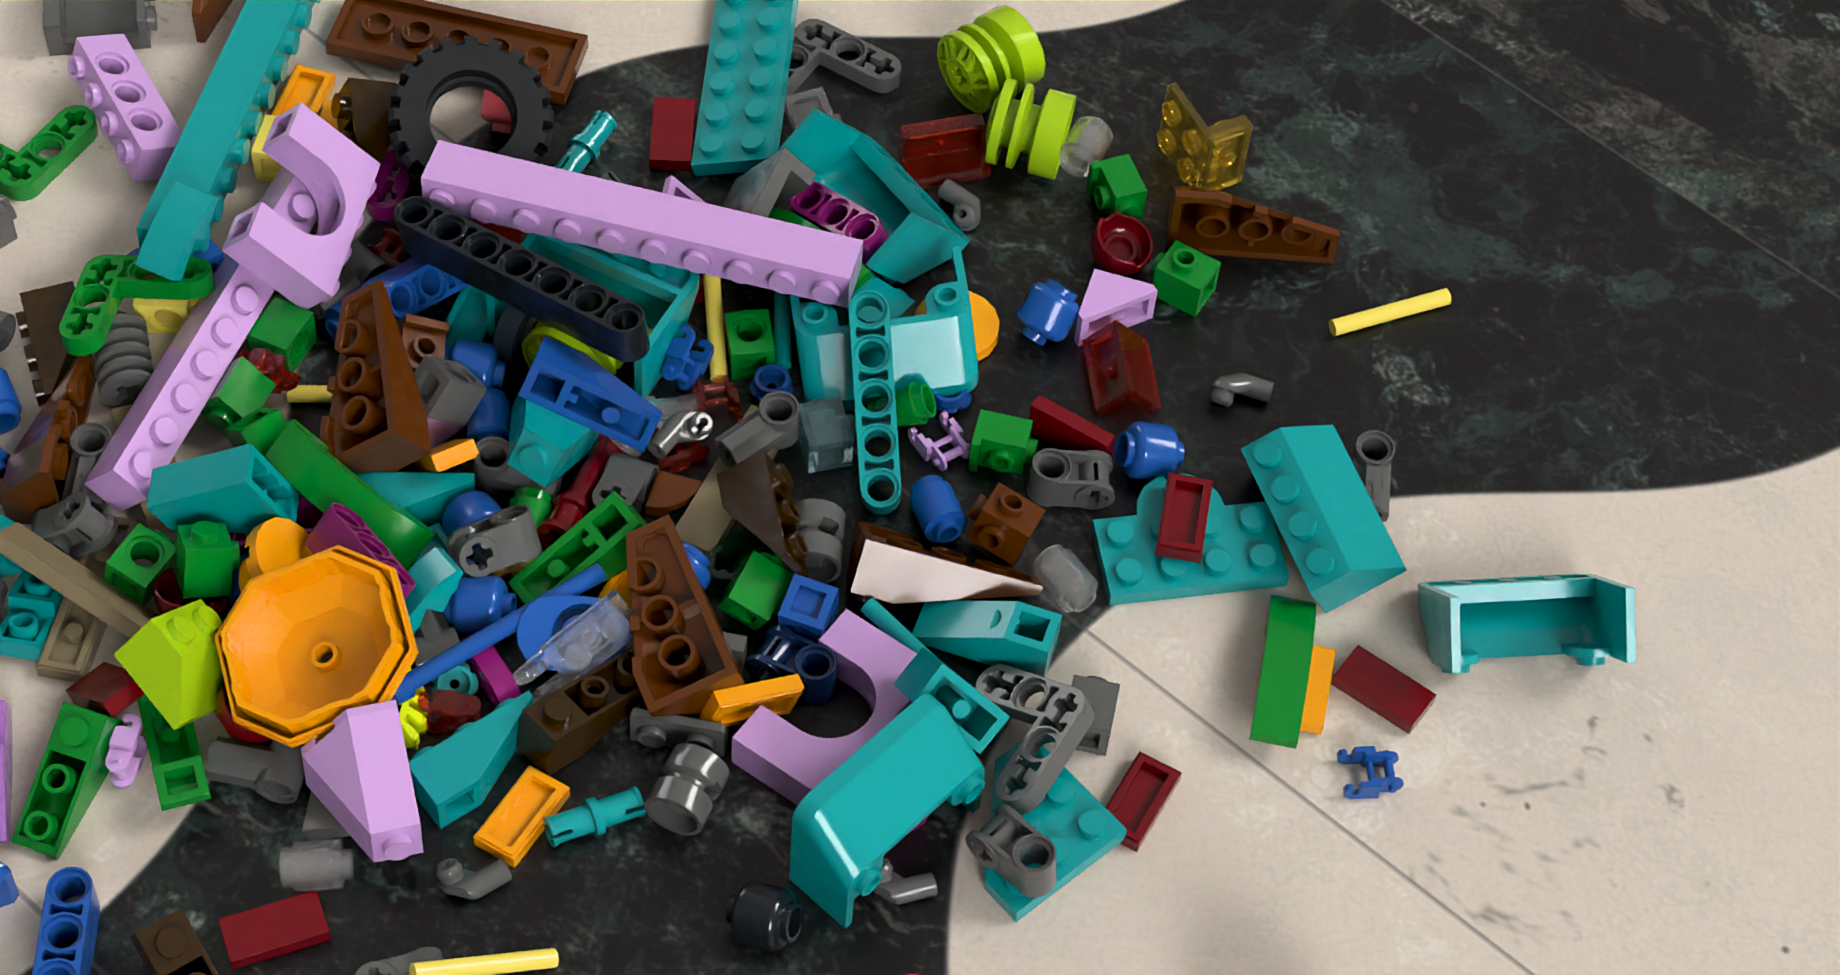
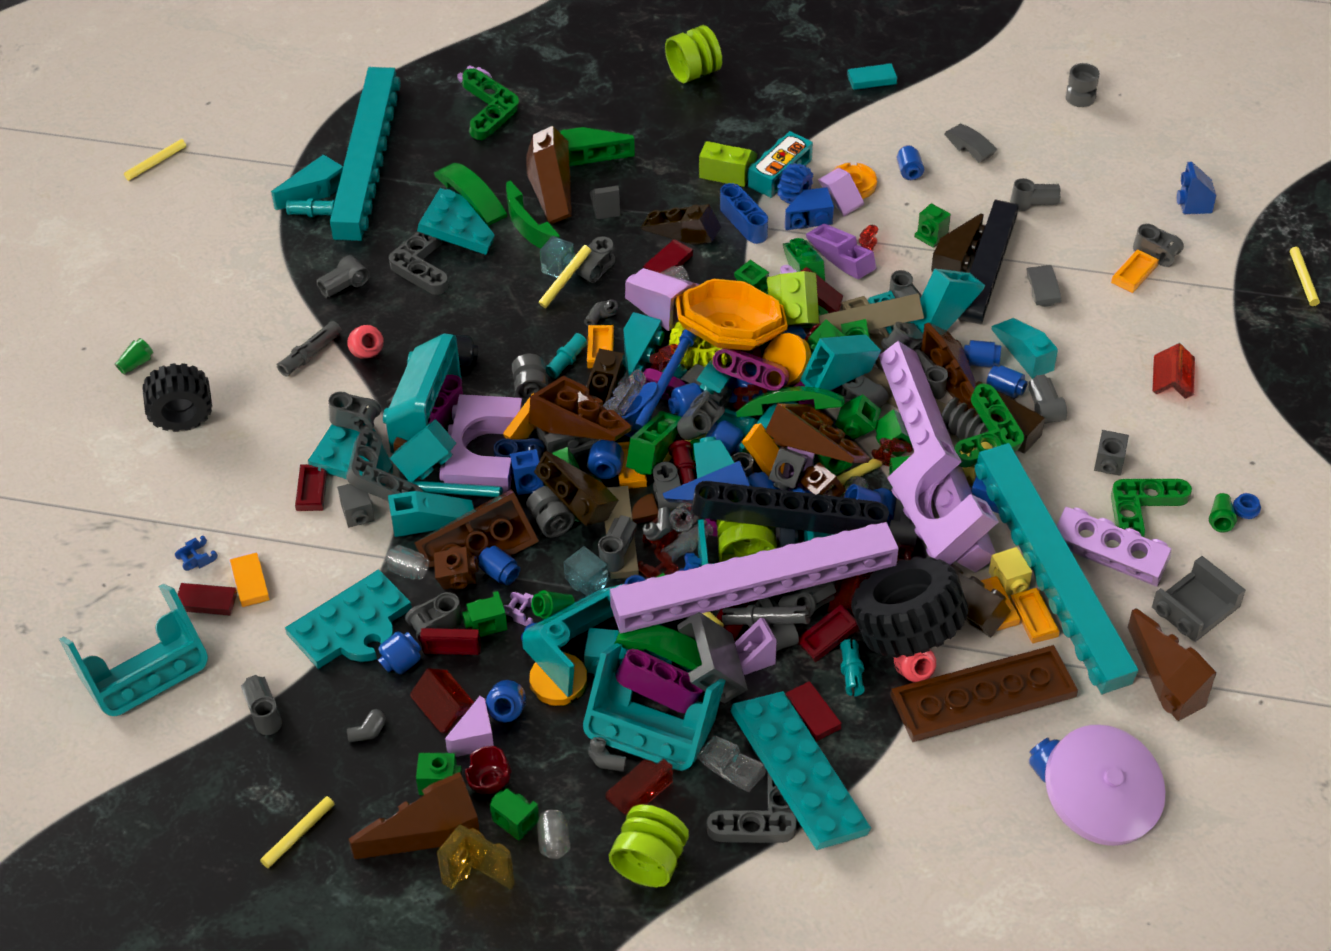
camera: 155 degrees right, 5 degrees down
(179, 221) = (984, 444): teal slope -> none
(879, 381) = (562, 571): teal beam -> none
(1029, 128) = (590, 805): lime wheel -> none
(1183, 517) = (357, 616): dark red tile -> none
(1284, 671) = (265, 578): green slope -> none
(1323, 512) = (280, 656): teal slope -> none

